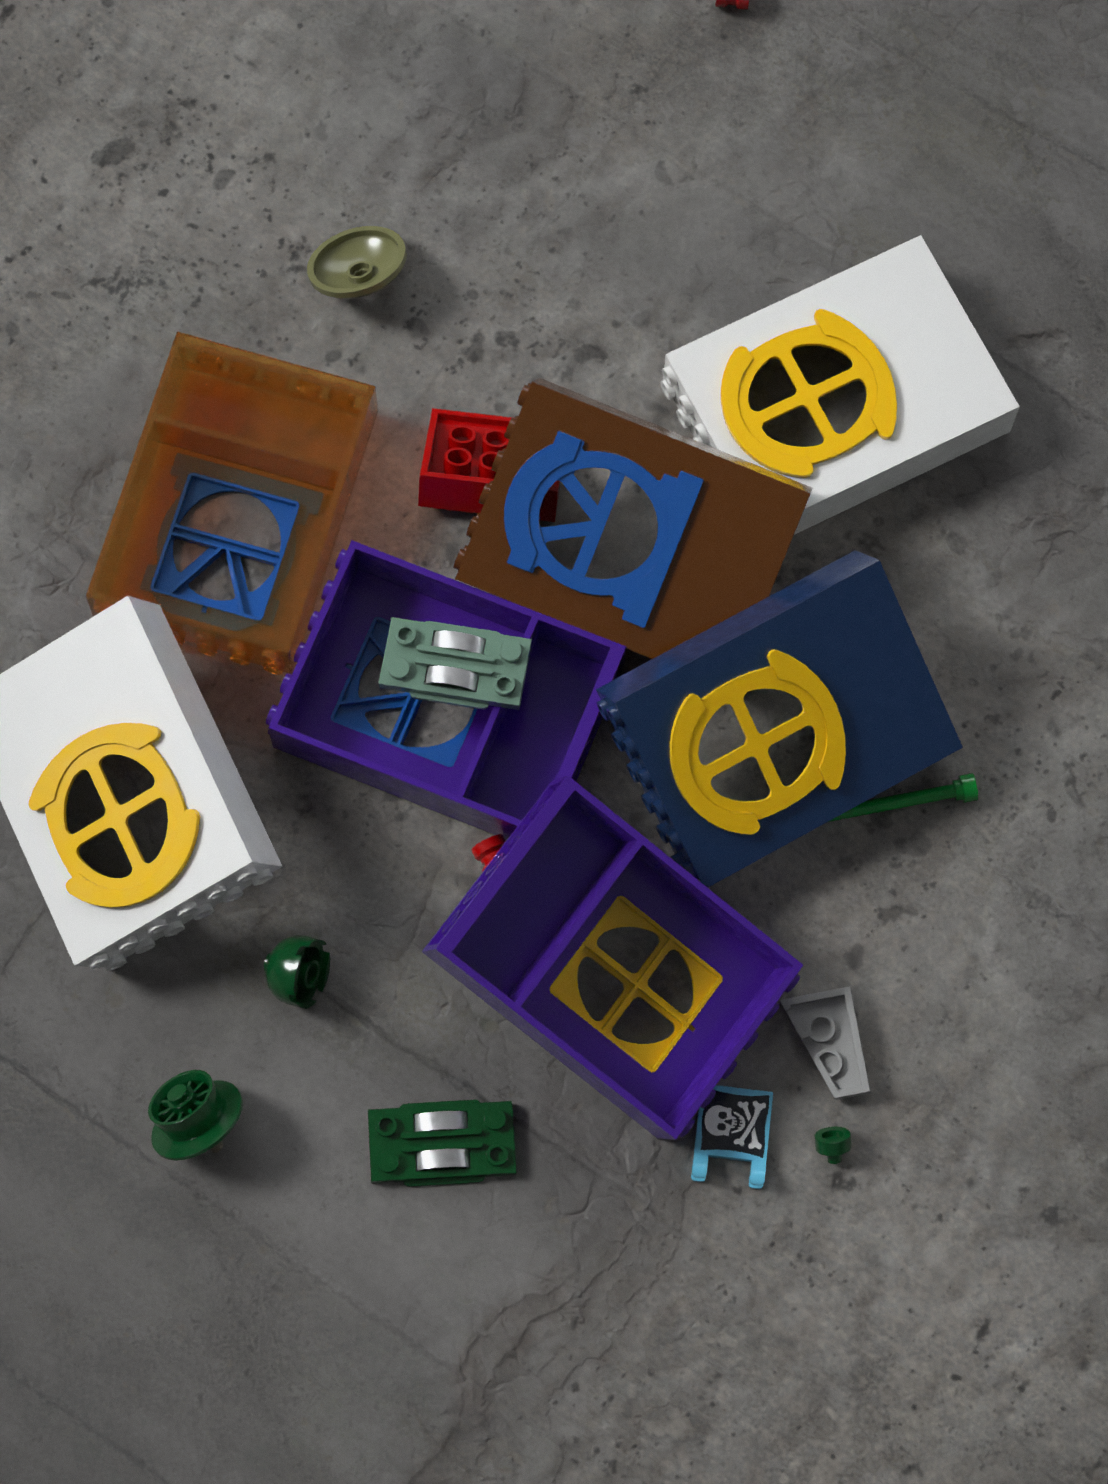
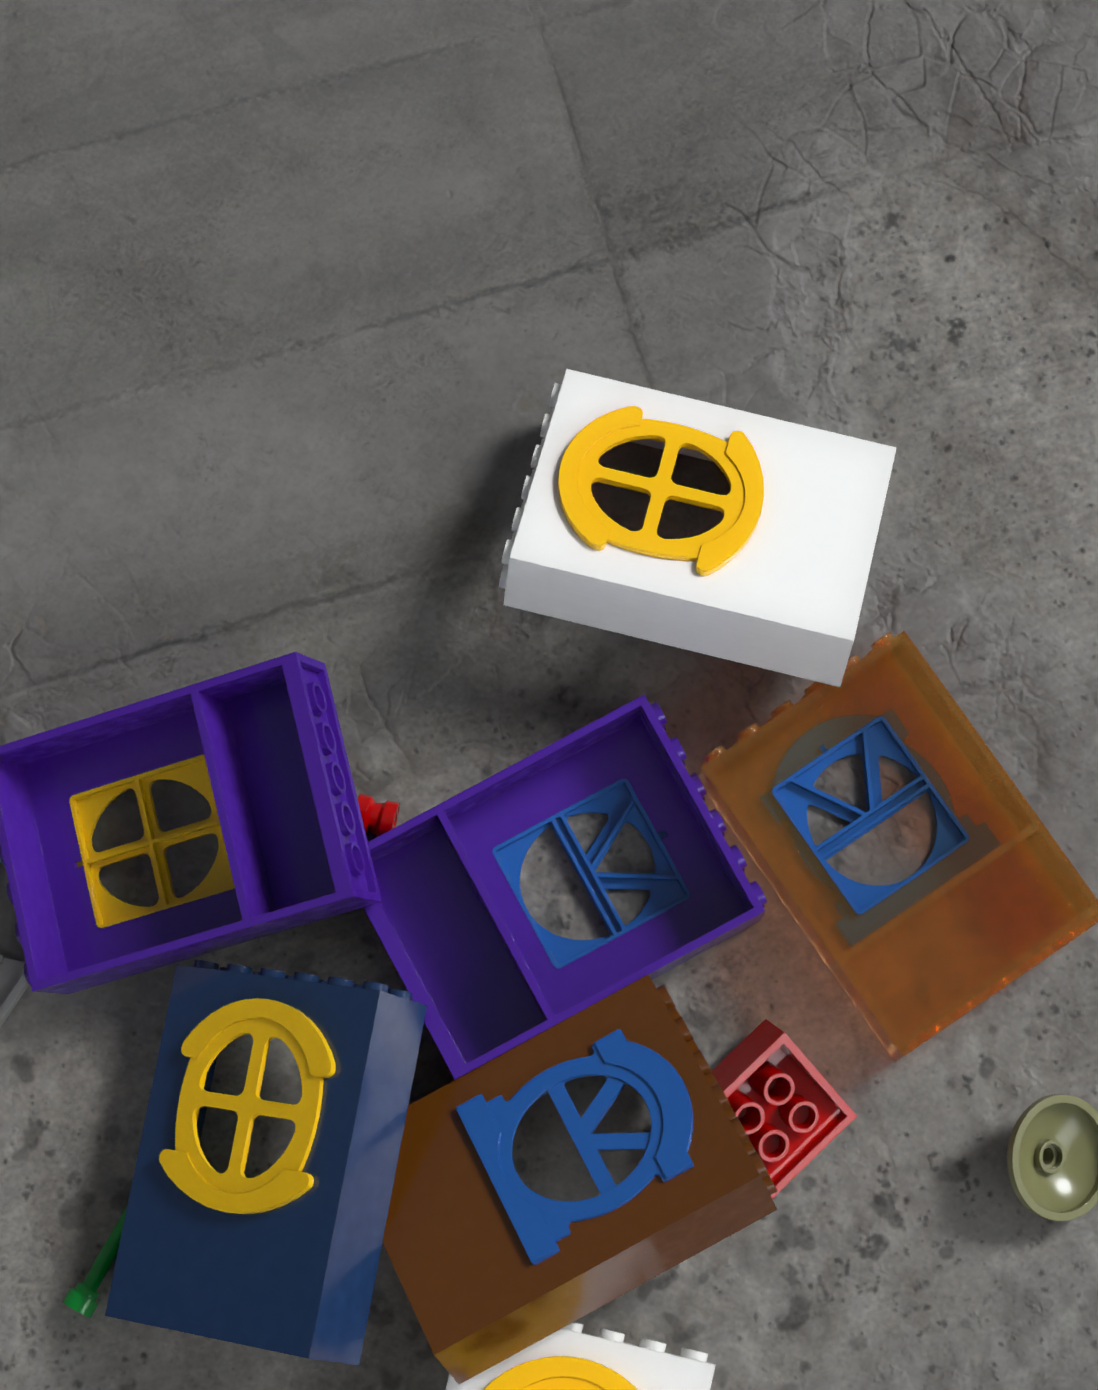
camera: 135 degrees right, 5 degrees up
(193, 1115) = (357, 378): dark green piece -> none
(297, 969) = (417, 563): dark green cylinder -> none
(441, 1142) = (169, 576): dark green piece -> none
(455, 664) = (565, 908): sand green piece -> none

